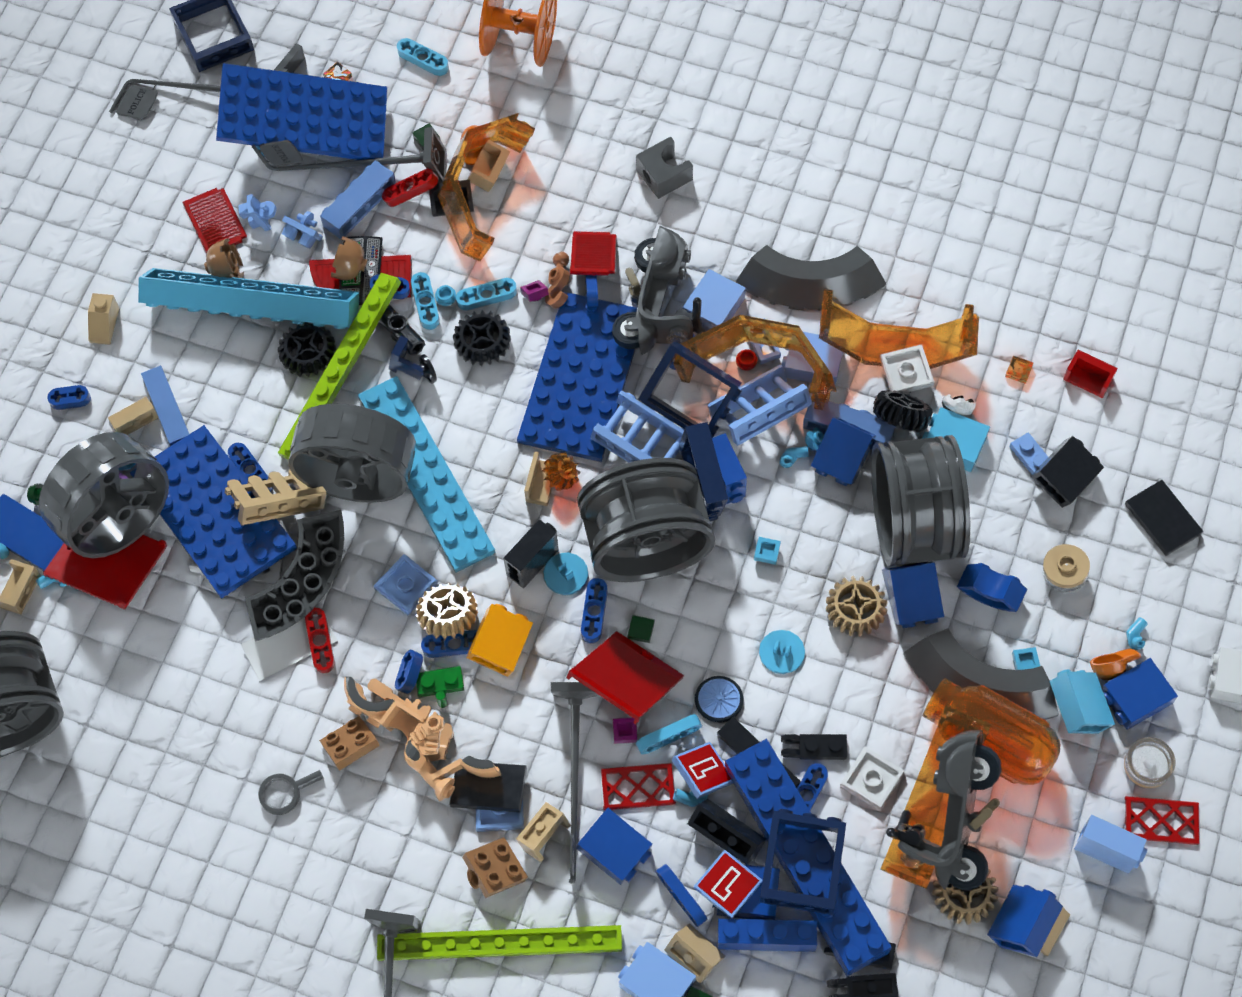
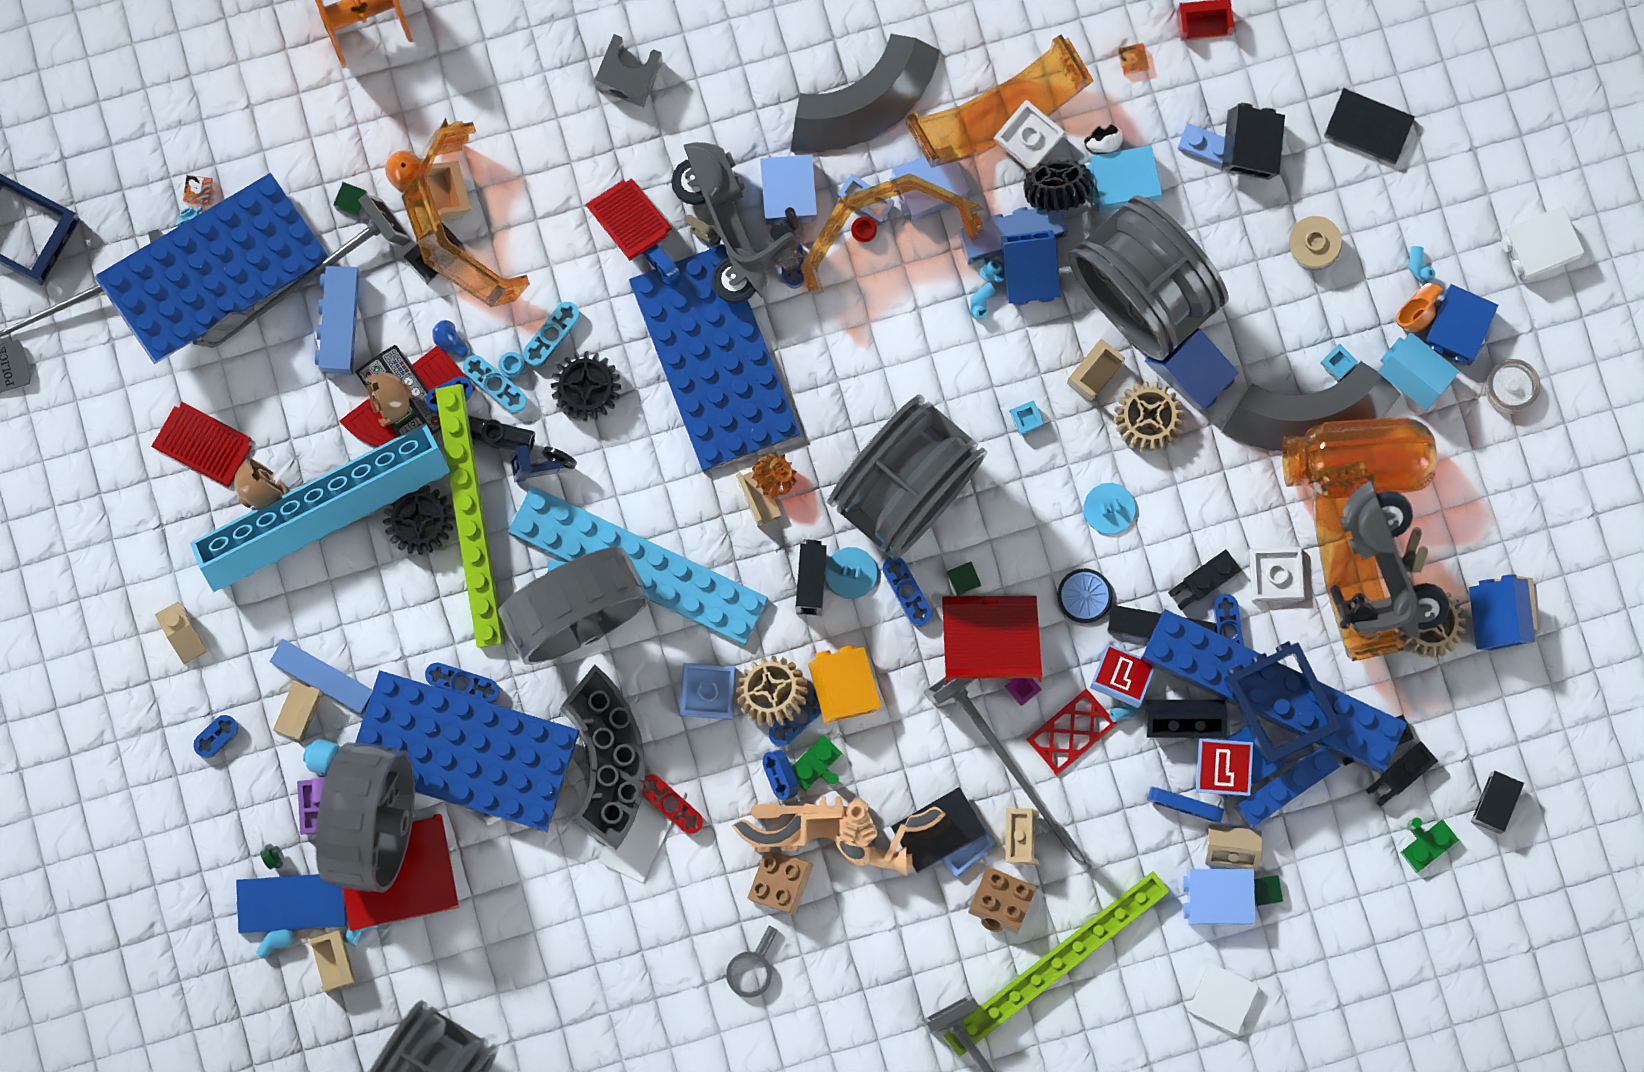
camera: 40 degrees left, 15 degrees up
(257, 212) = (250, 407): light blue hips -> none
(273, 506) = (523, 709): tan fence -> none
(292, 59) = (137, 207): dark grey tile -> none
(309, 235) = (295, 396): light blue hips -> none
(398, 192) = (396, 269): red beam -> none
(417, 253) = (447, 338): none -> blue animal
(418, 49) = (264, 100): medium azure beam -> none
(534, 291) = (599, 299): magenta plate -> none
(558, 279) = (614, 269): nougat piece -> none
(615, 847) = (1096, 803): blue brick -> none
(622, 446) = (815, 408): light blue fence -> none
(668, 734) = (1066, 663): medium azure beam -> none
(673, 414) = (845, 339): dark blue window -> none
(698, 450) = (910, 375): dark blue window -> none
(731, 469) = (932, 364): blue brick -> none
(768, 415) = (935, 282): light blue fence -> none
(840, 550) = (1096, 370): none -> tan panel
(992, 587) = (1261, 310): blue brick -> none
(1111, 844) = (1530, 490): light blue brick -> none
(1174, 805) = (1553, 454): red window -> none

